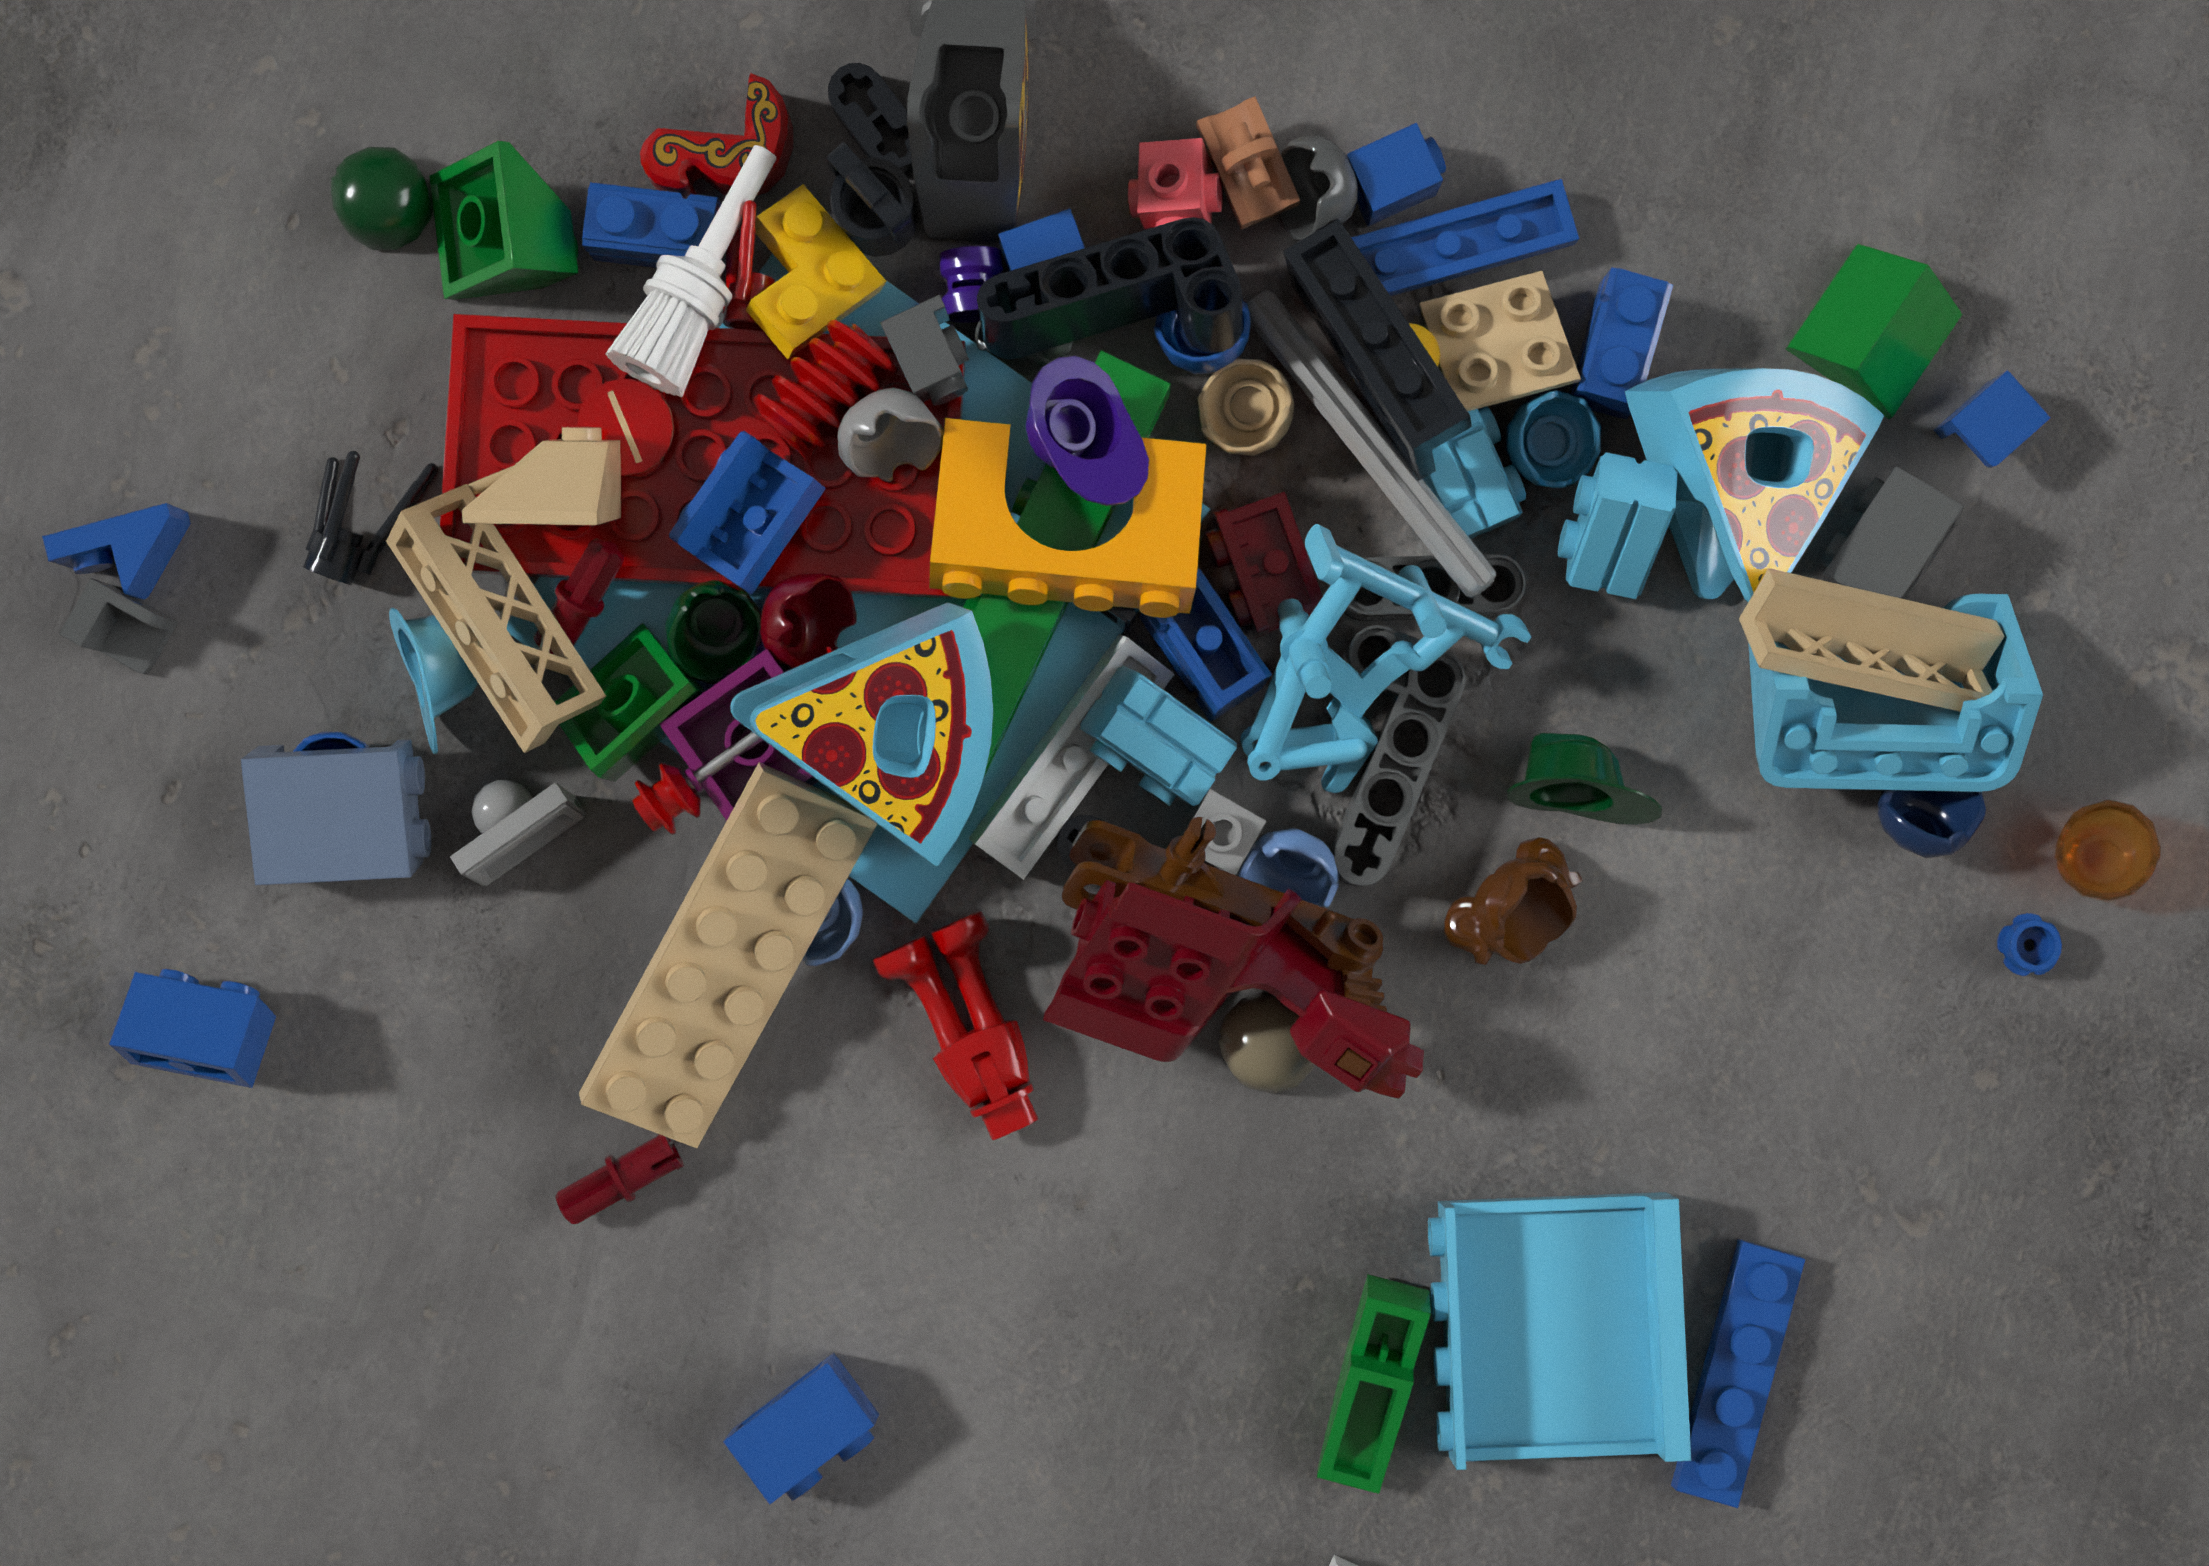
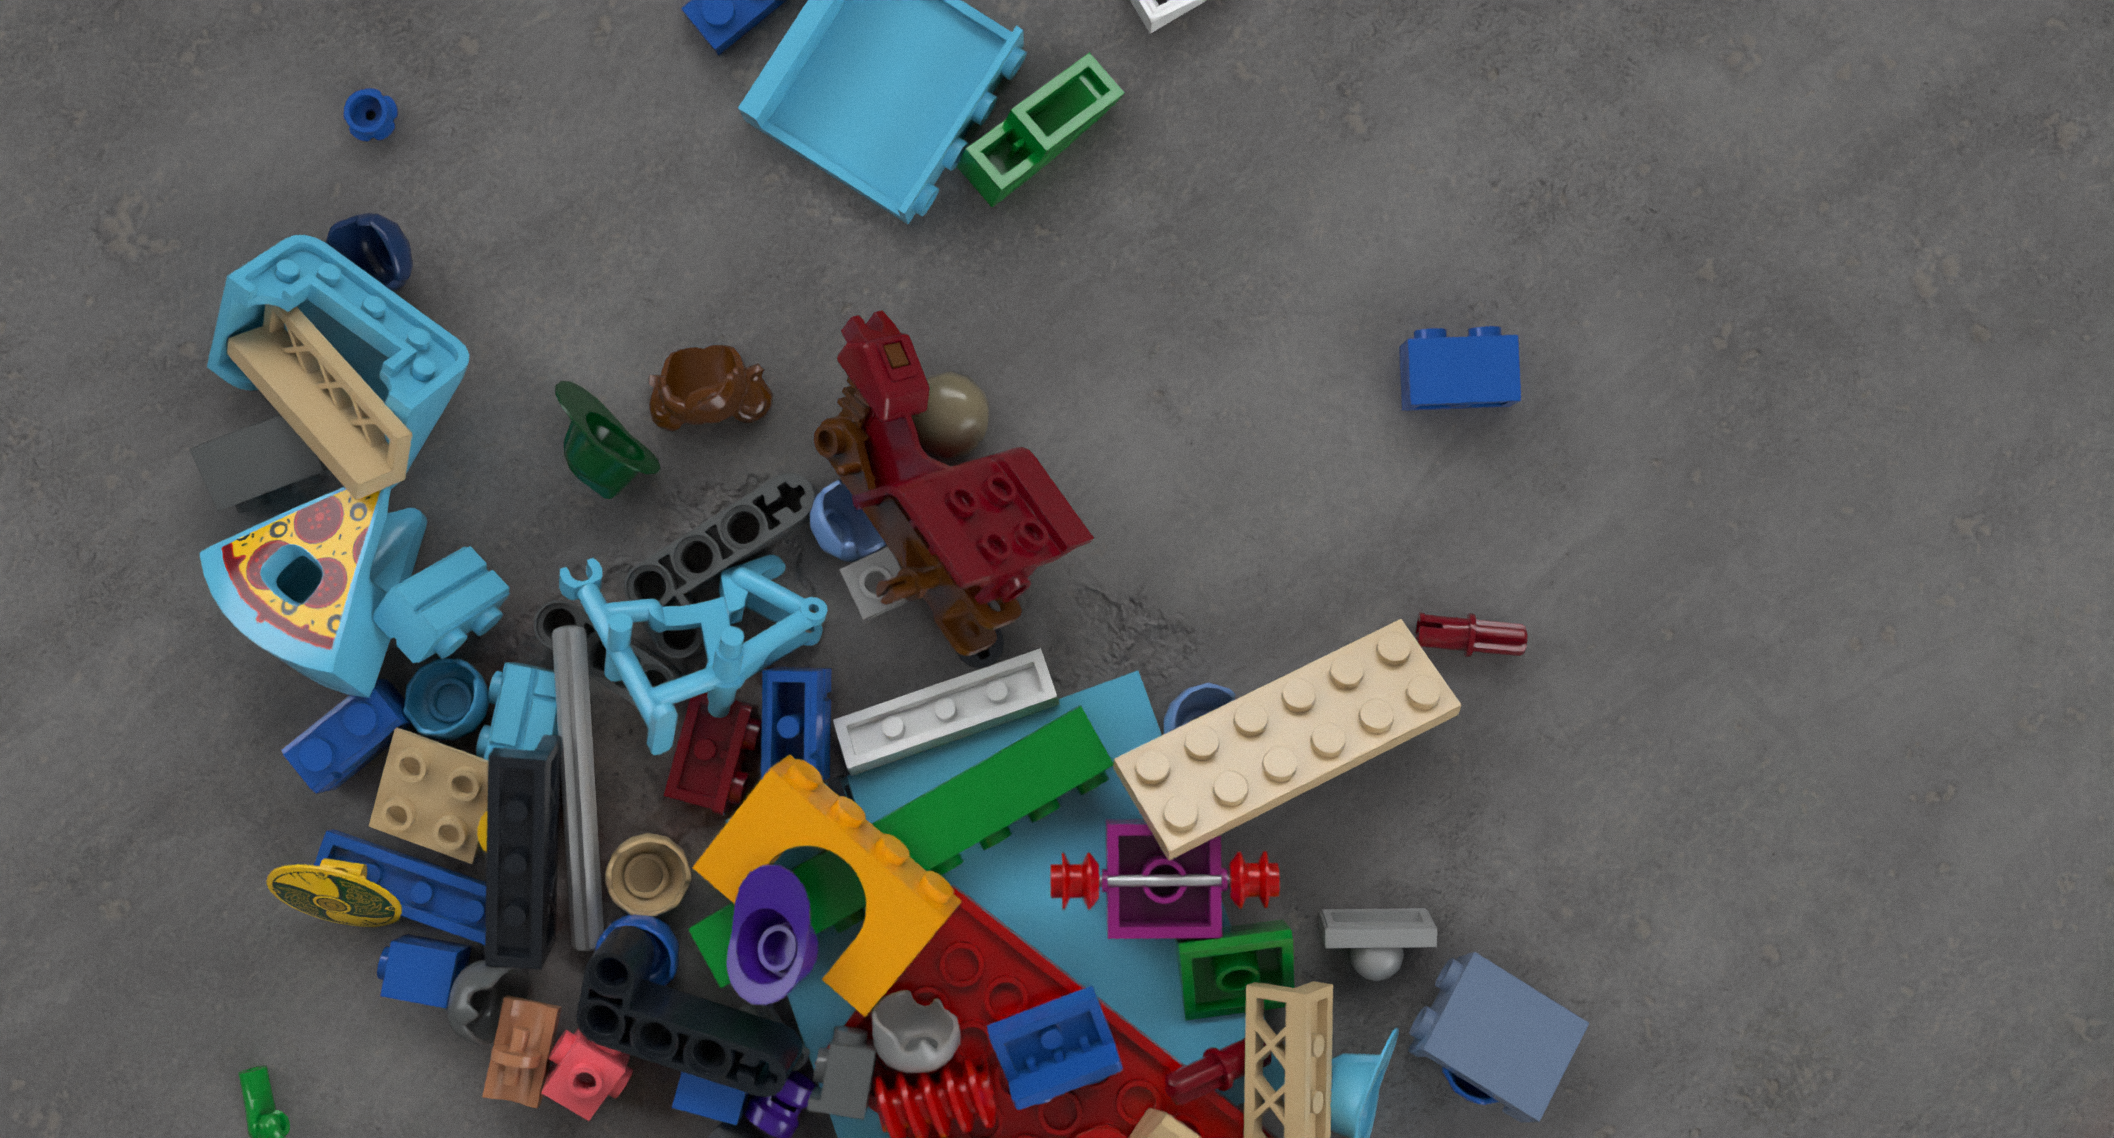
camera: 150 degrees left, 0 degrees up
(193, 1027) = (1701, 950): blue brick -> none
(713, 630) = (1137, 978): dark green hair -> none
(805, 617) = (1066, 941): dark red hair -> none
(890, 724) = (1055, 821): piece -> none
(982, 1064) = (1156, 538): red piece -> none
(1158, 737) = (875, 682): medium azure brick -> none
(1526, 187) = (335, 893): none -> shield
(1877, 326) = (160, 622): green slope -> none
(1995, 419) = (125, 496): blue panel -> none
(2107, 851) = (267, 141): clear orange hair -> none

